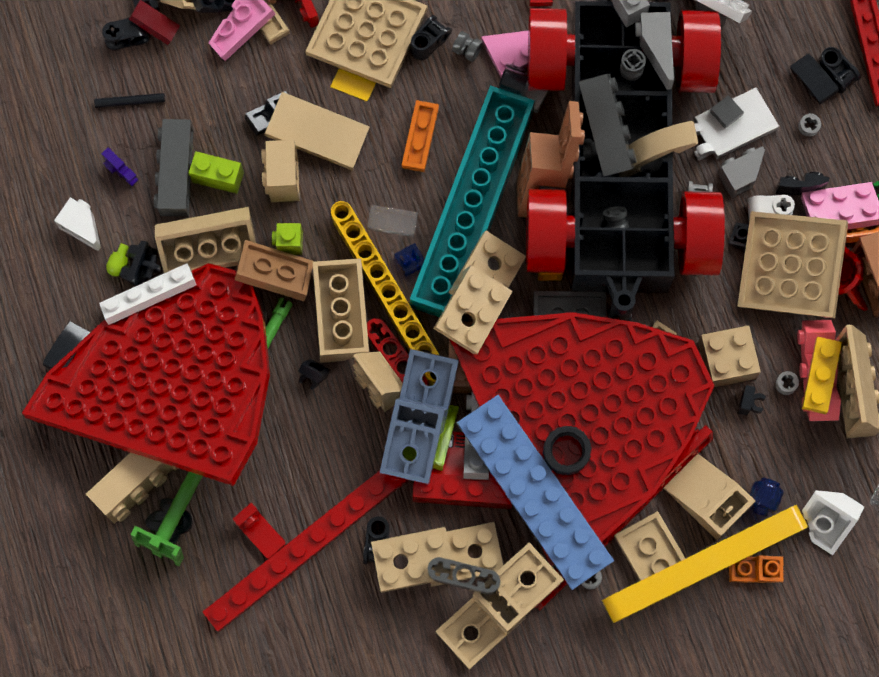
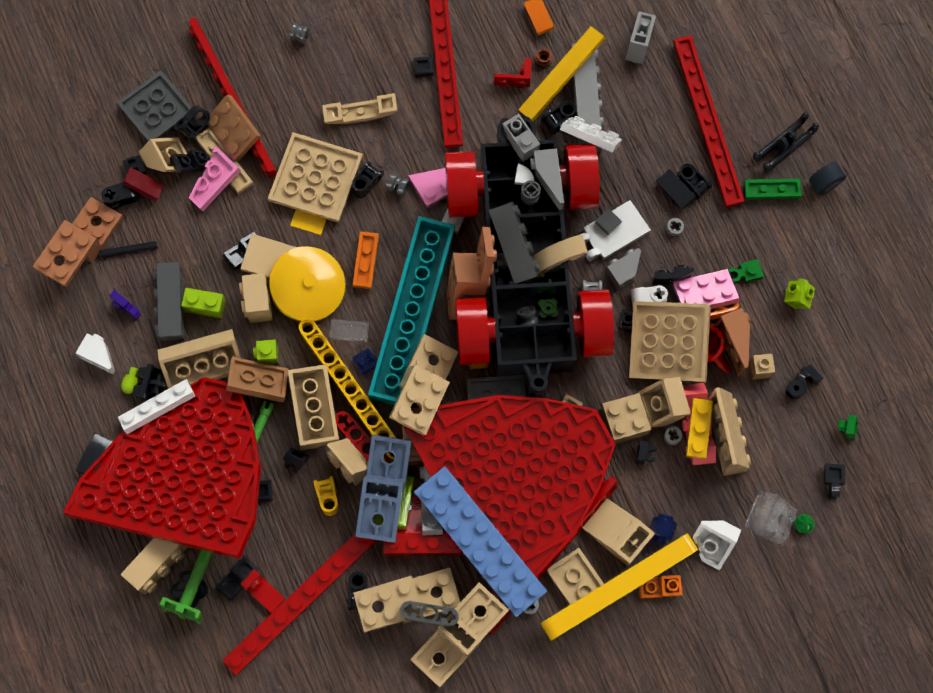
camera: 10 degrees left, 0 degrees up
(68, 86) = (78, 242): none -> nougat bracket
(221, 519) = (231, 584): none -> black slope
(272, 408) = (265, 491): none -> black tile
(345, 159) = (306, 284): none -> yellow dish
(348, 417) = (327, 492): none -> yellow piece
(513, 79) = (436, 209): black piece -> none
(572, 432) = (503, 491): black tyre -> none
(624, 42) = (522, 175): none -> white tile
(644, 205) = (548, 303): none -> bright green plate
(780, 339) = (665, 402): none -> tan brick

